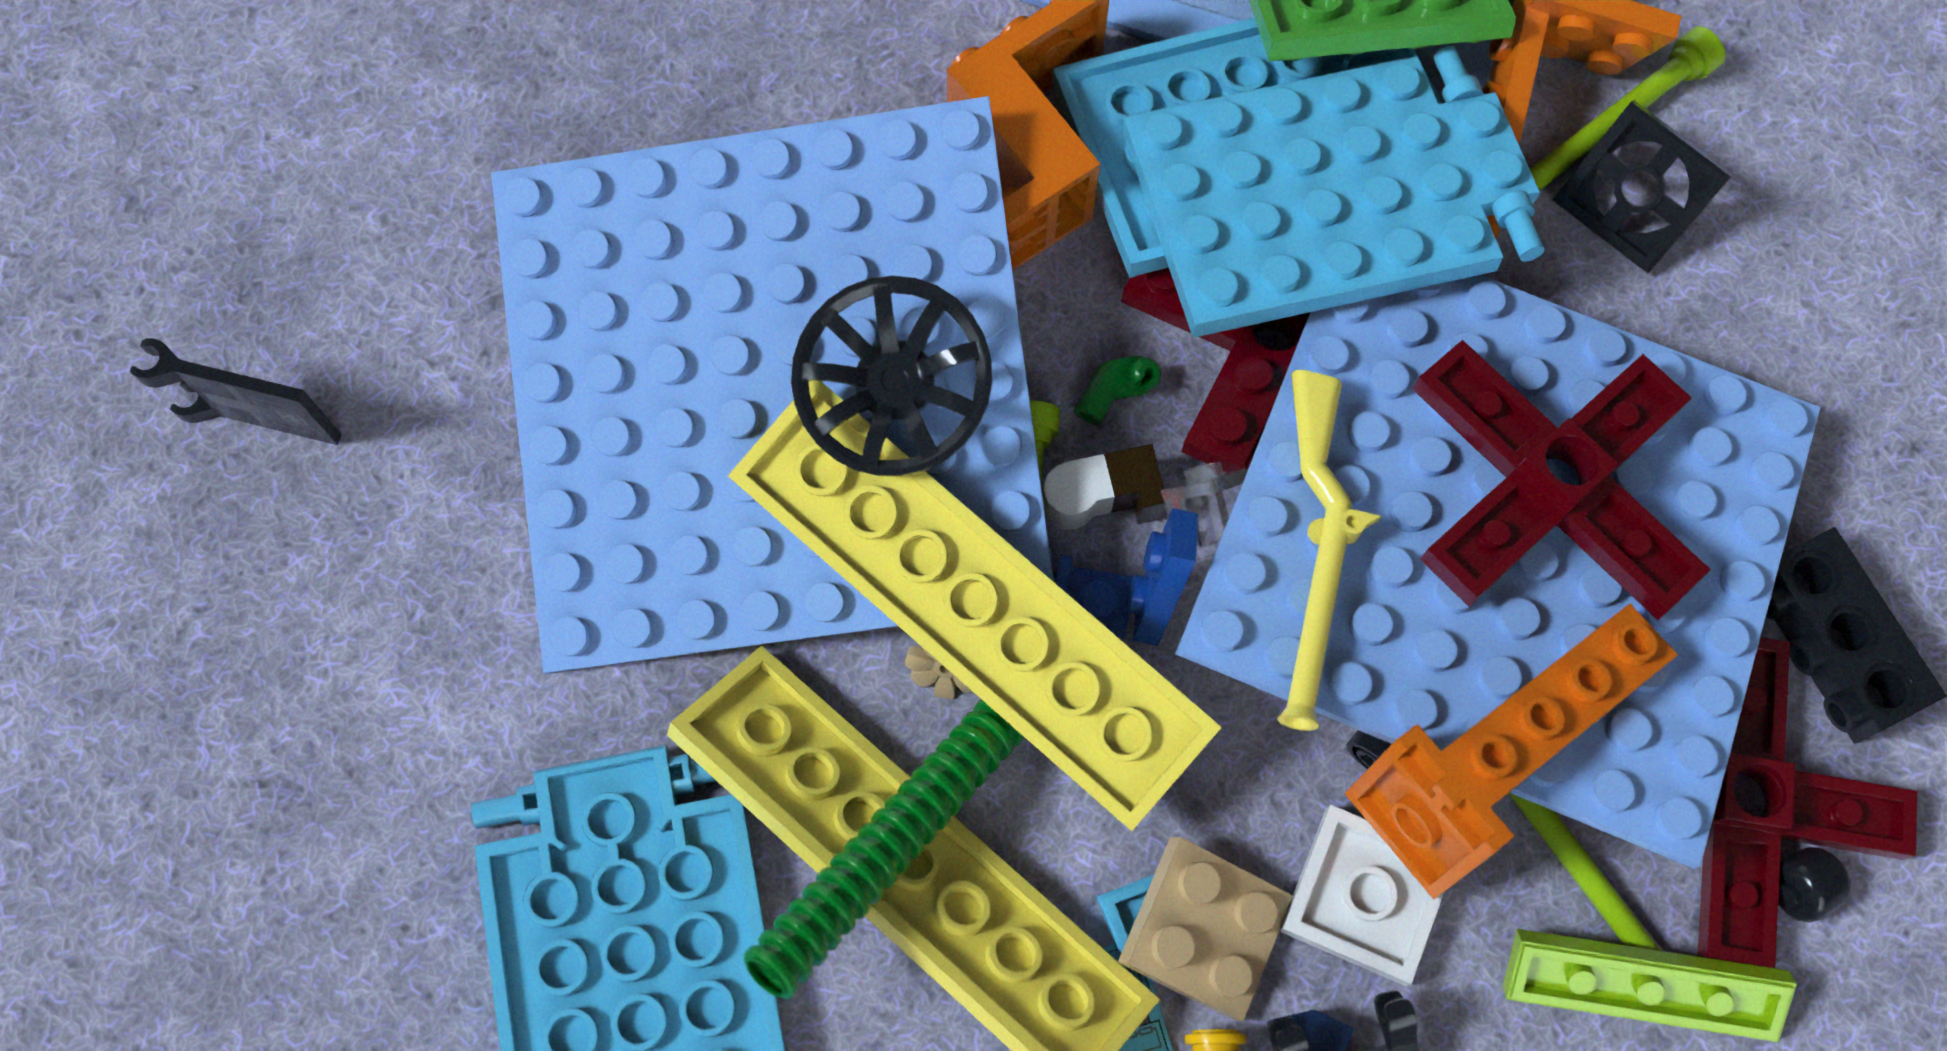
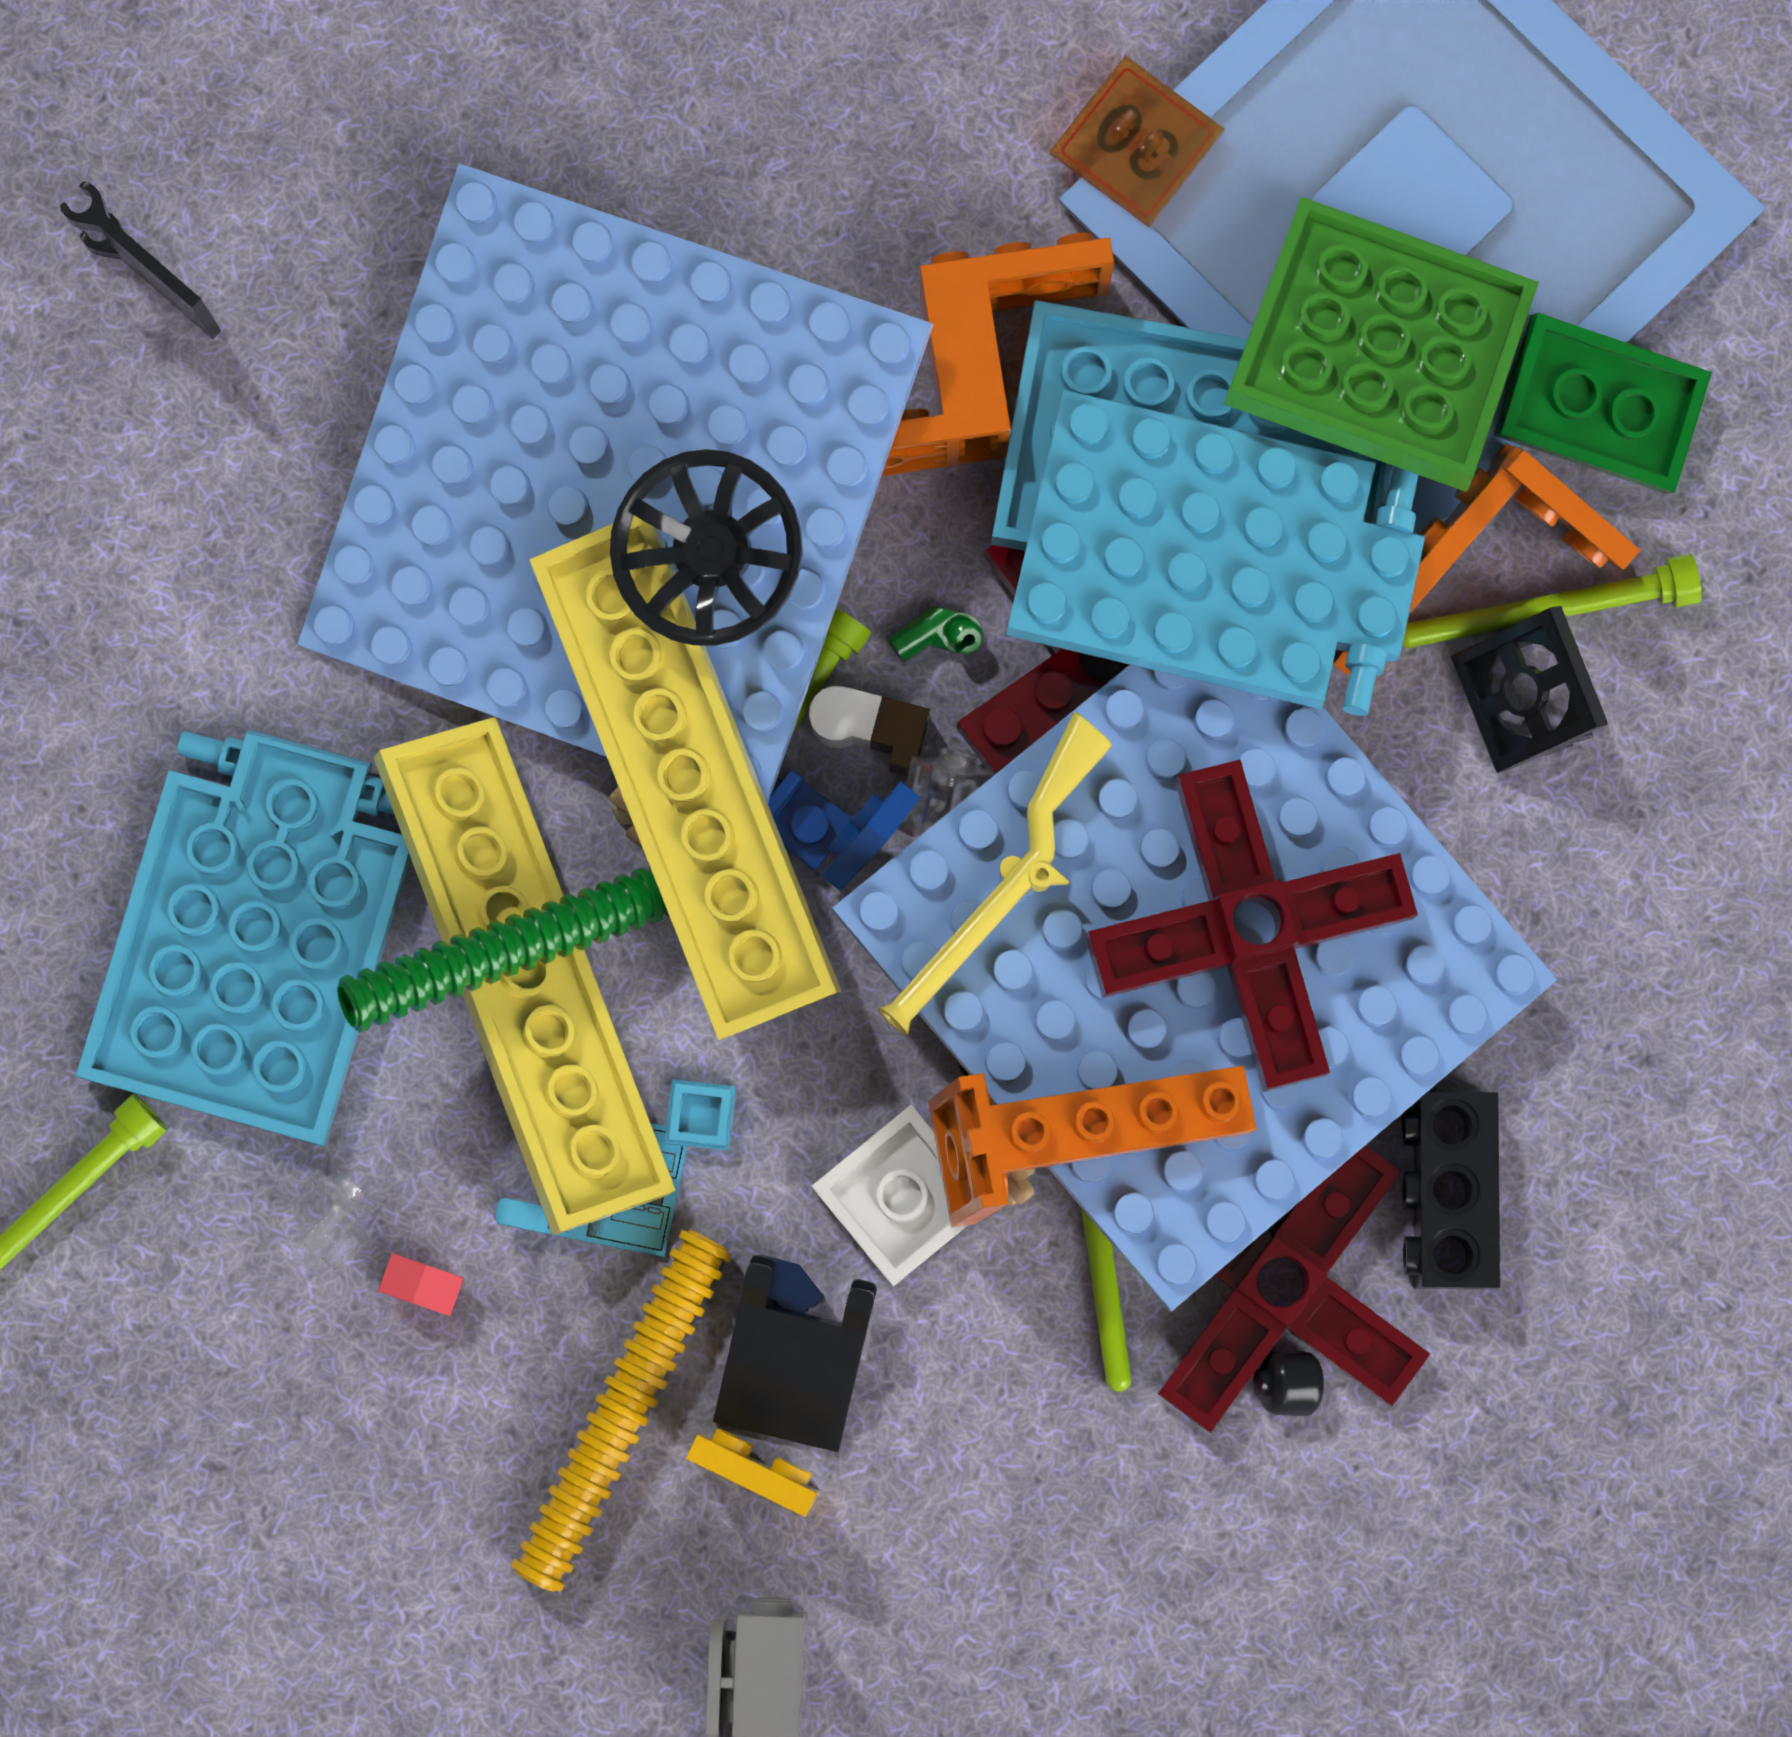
camera: 30 degrees right, 10 degrees up
(1206, 929) = (747, 1152): tan plate -> none
(1648, 985) = (1096, 1391): lime tile -> none

